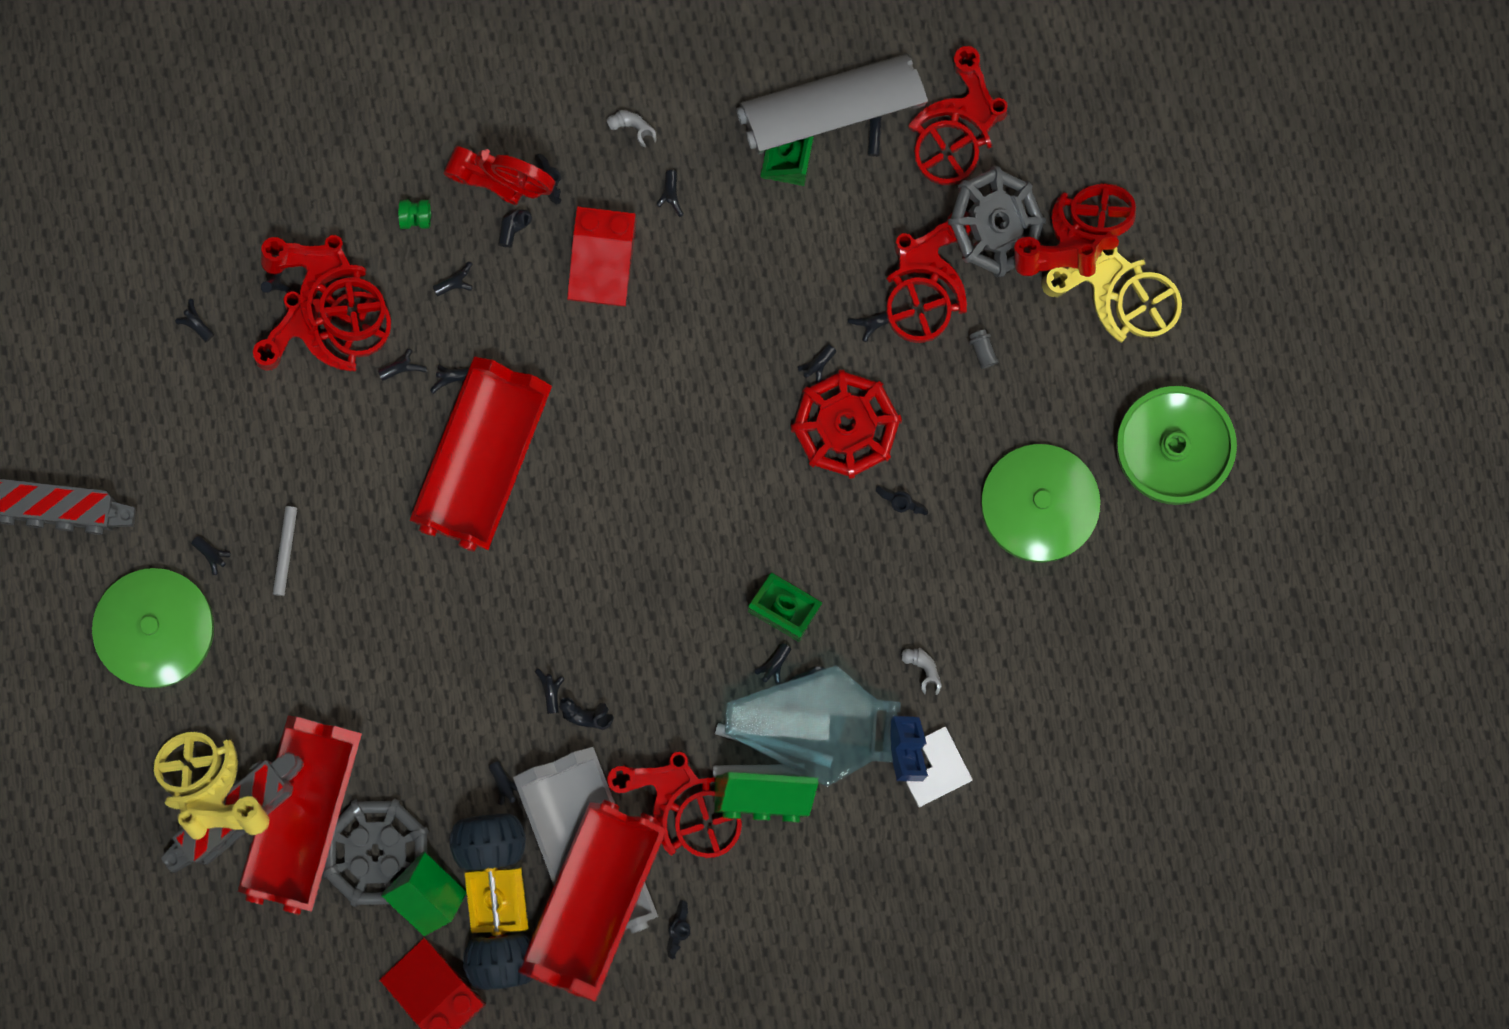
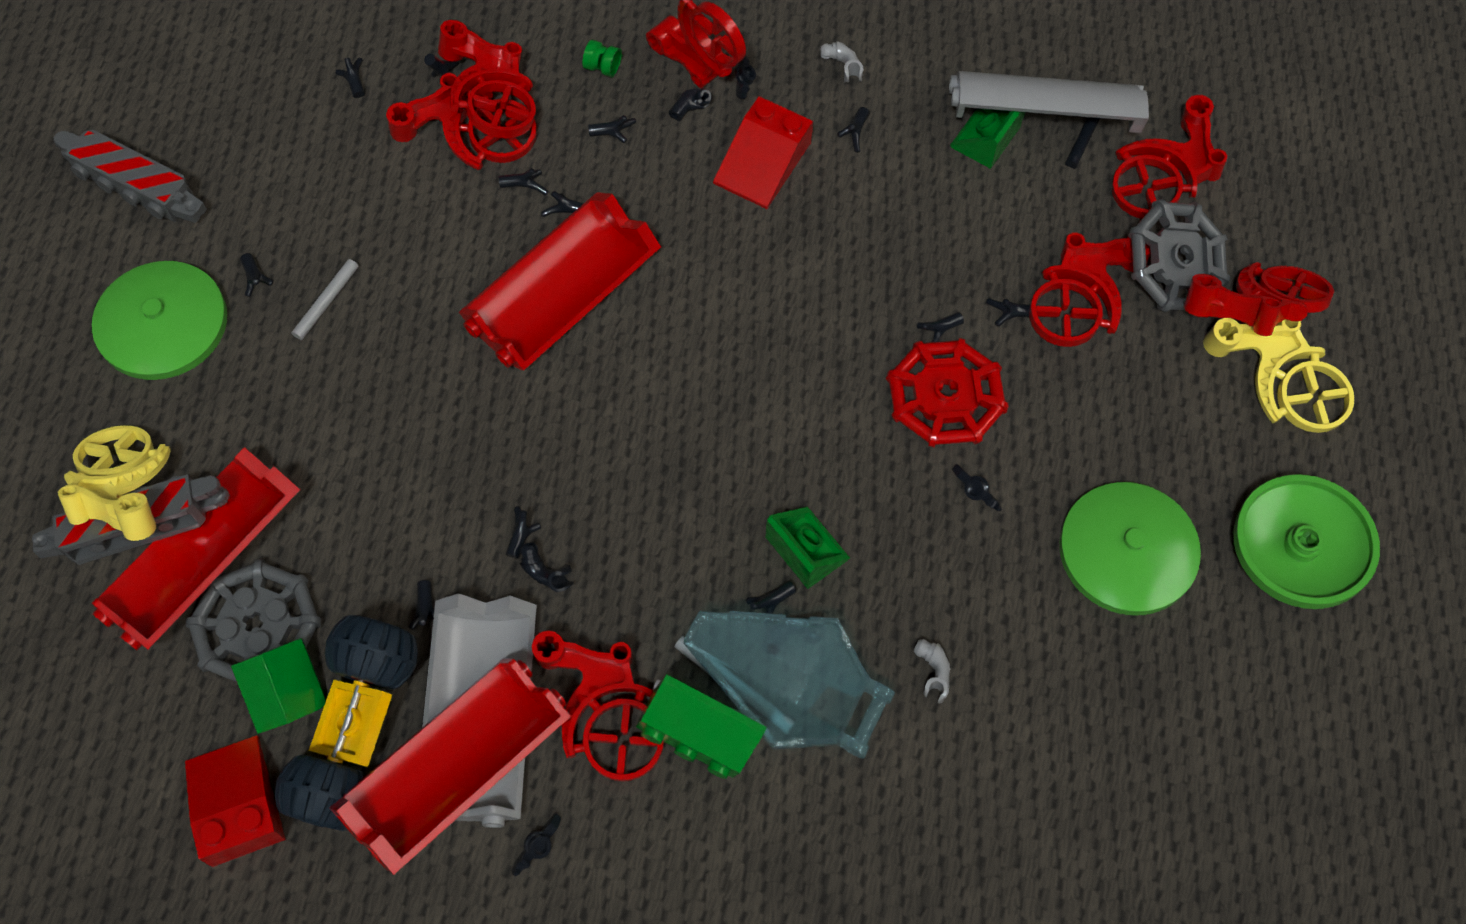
camera: 25 degrees right, 15 degrees down
(906, 747) = (882, 743): dark blue slope -> none
(946, 769) = (917, 793): white tile -> none
(983, 348) = (1120, 366): dark grey pin -> none

